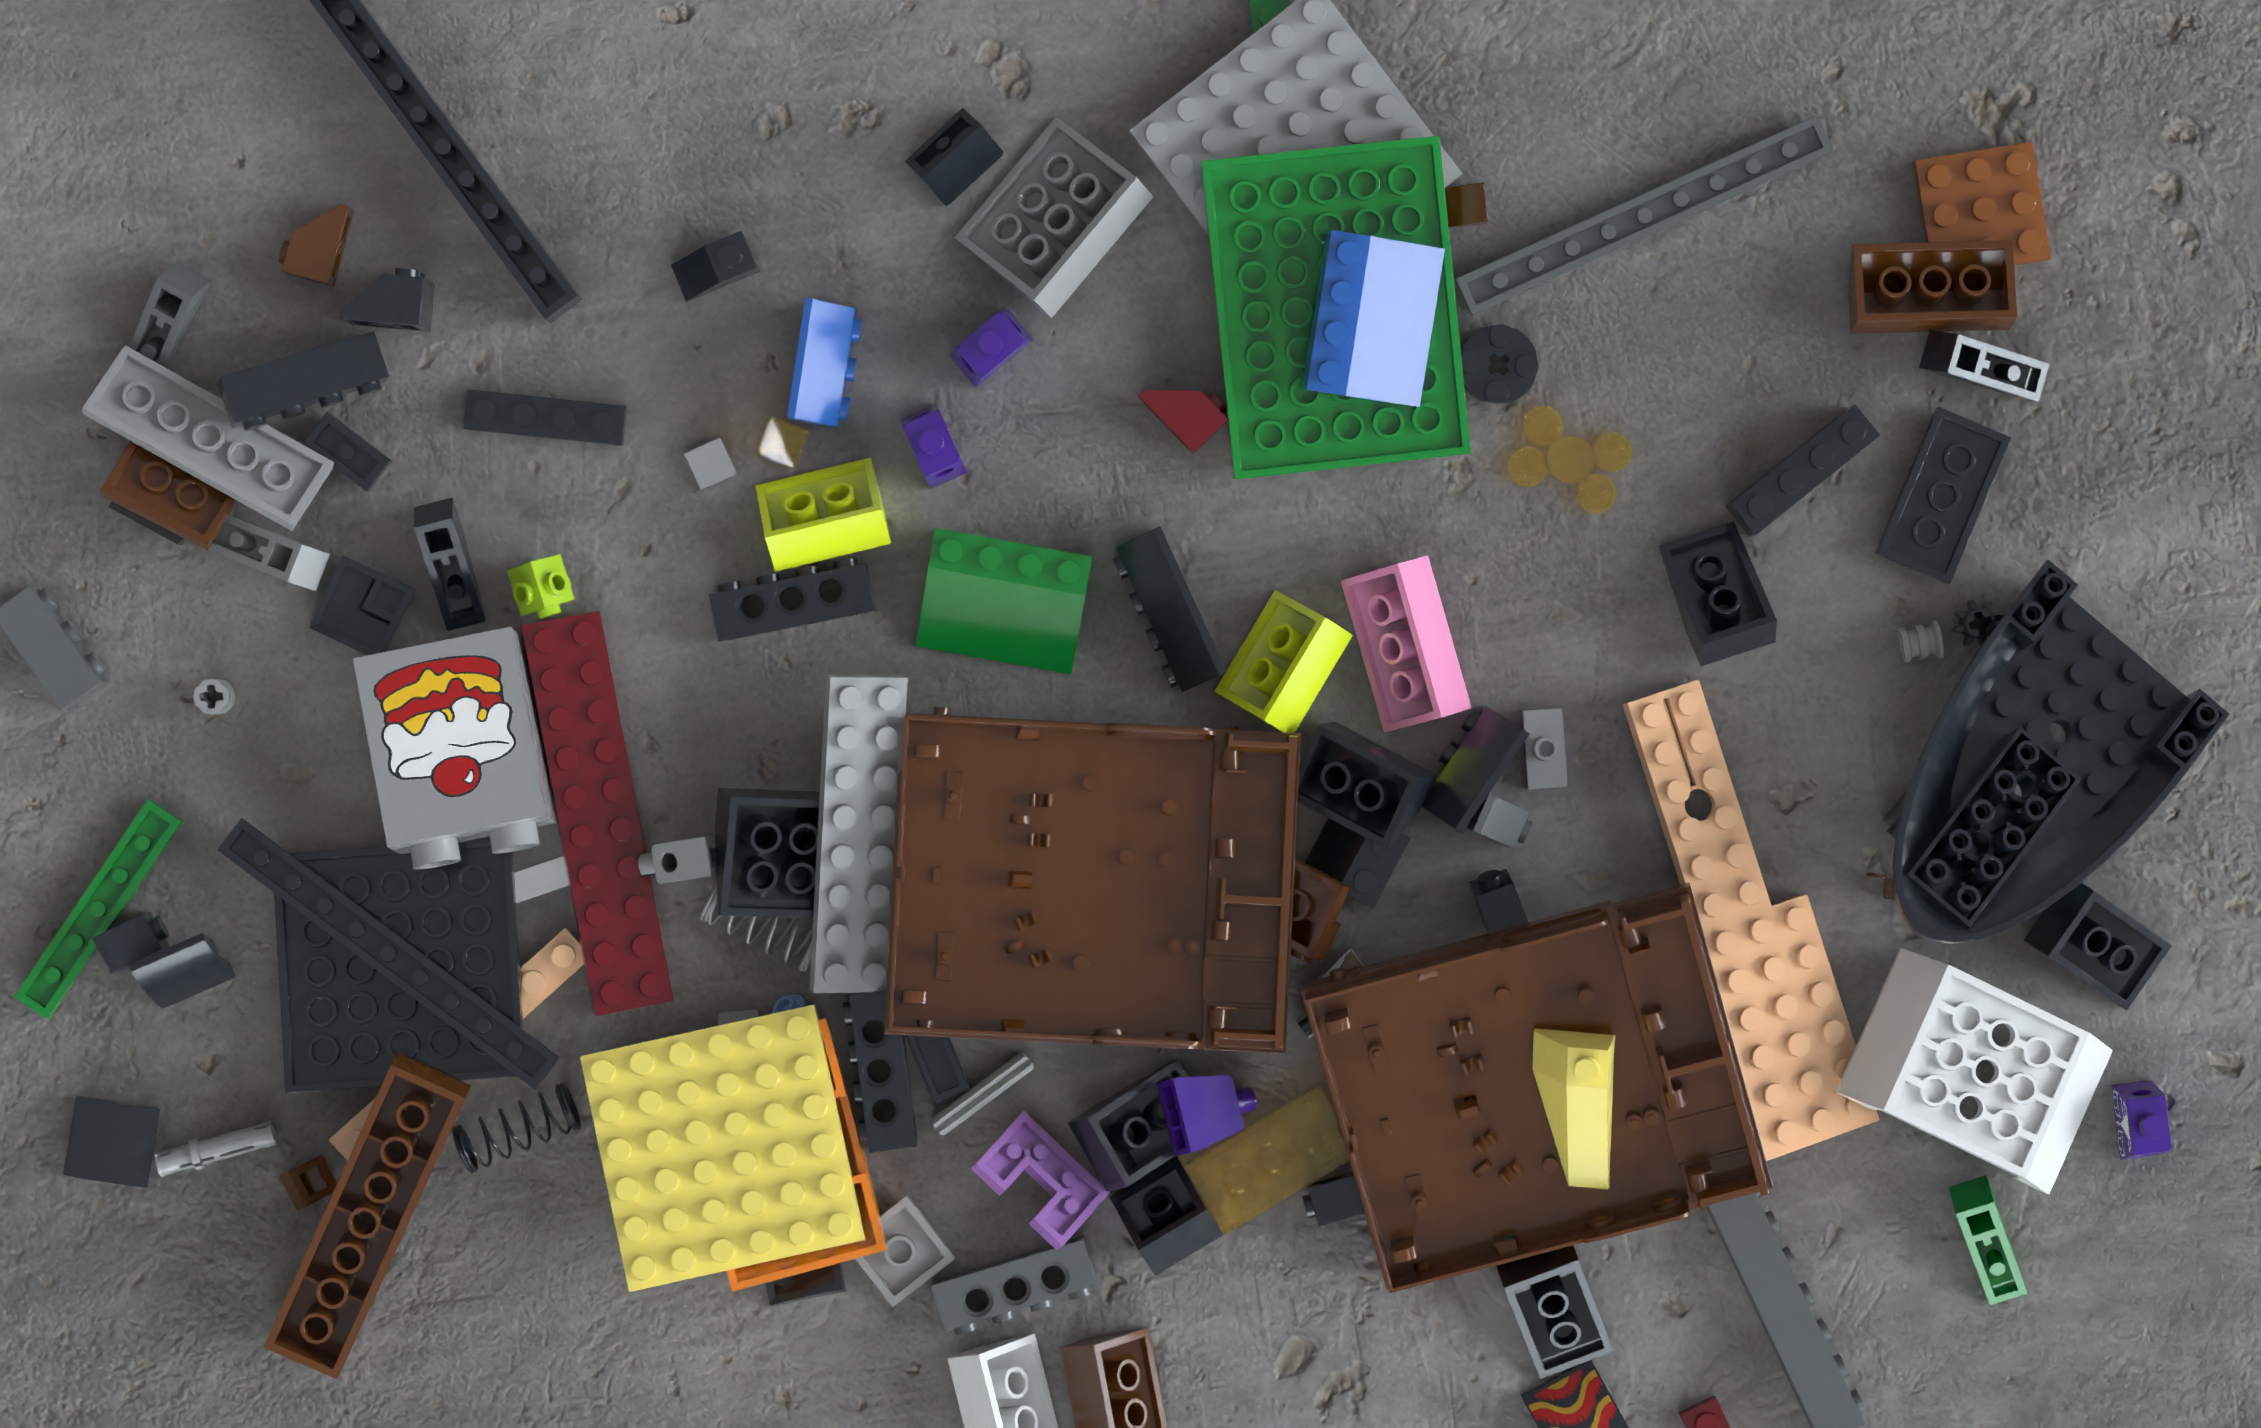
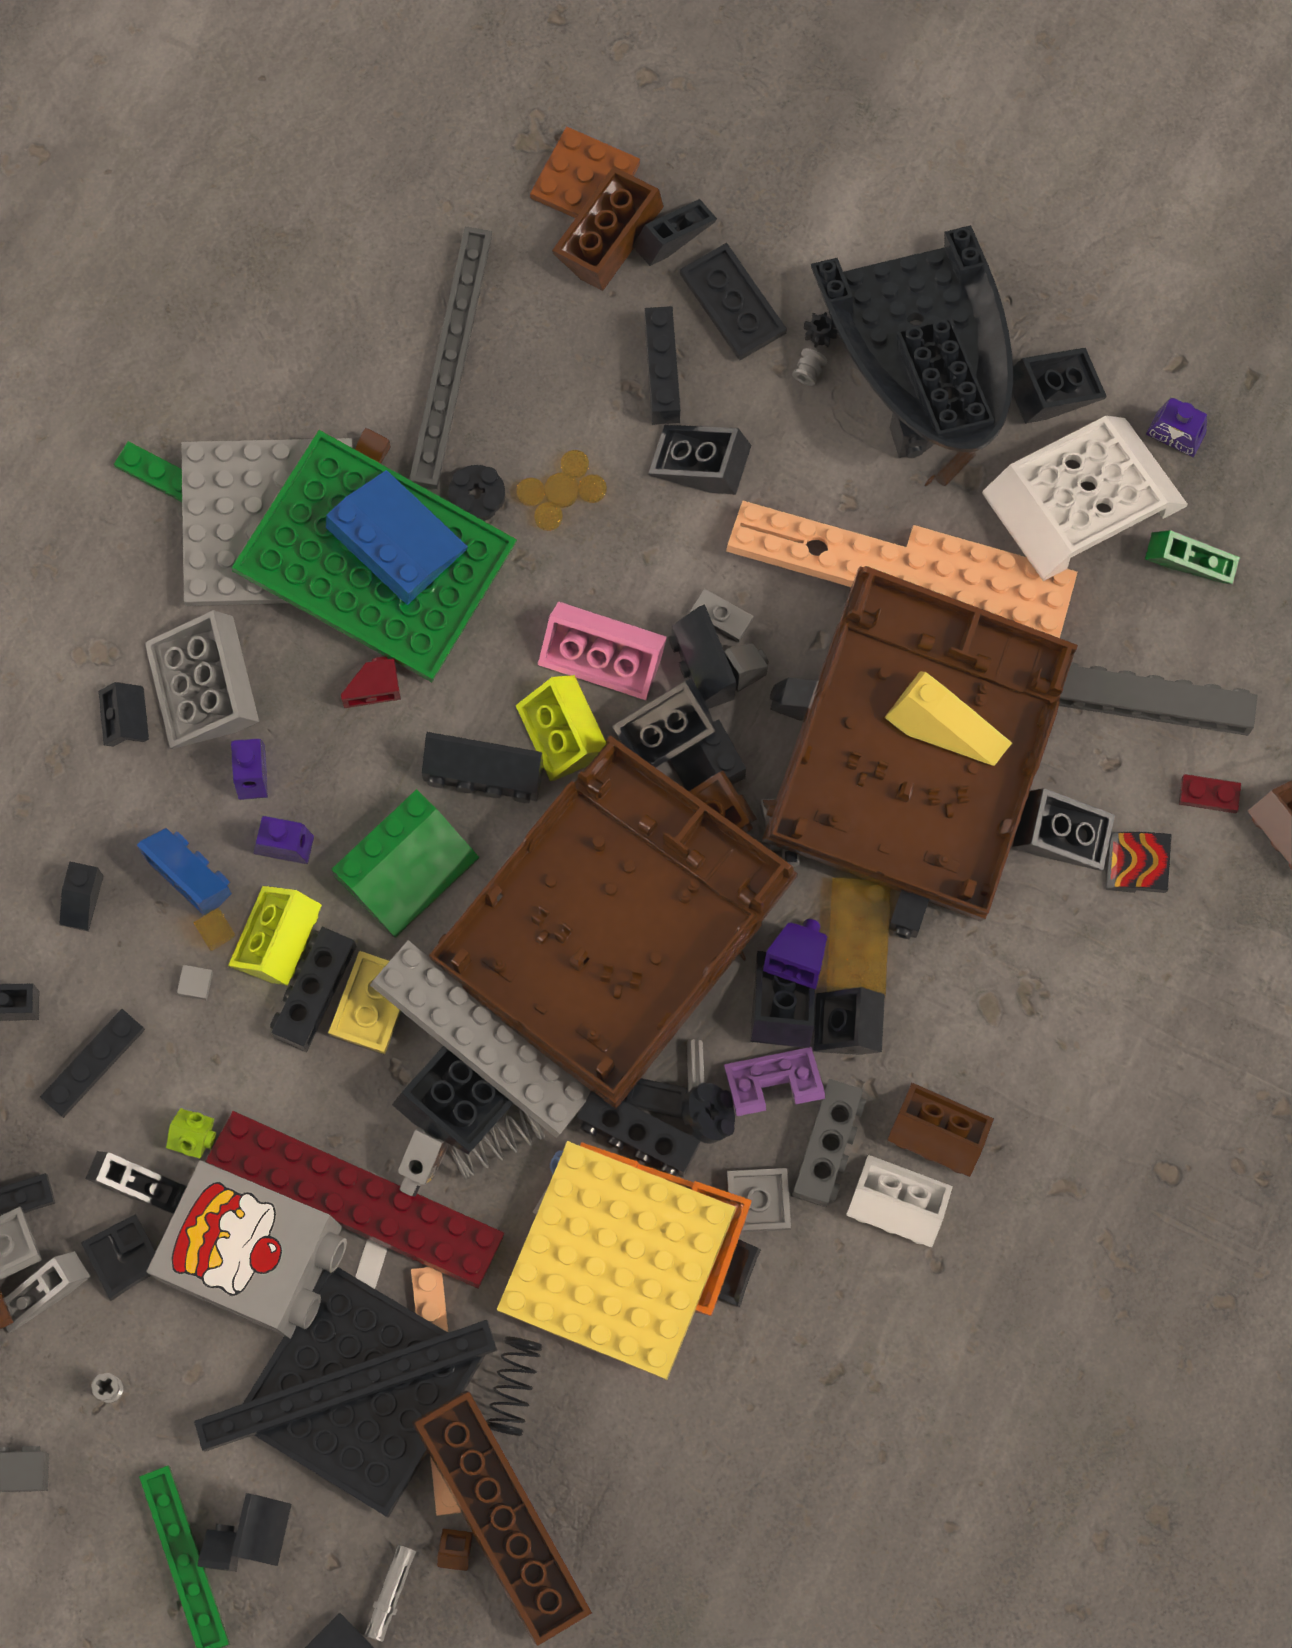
camera: 55 degrees left, 15 degrees down
(797, 672) = (363, 1013): none -> light yellow plate
(973, 1140) = (722, 1112): none -> black plate

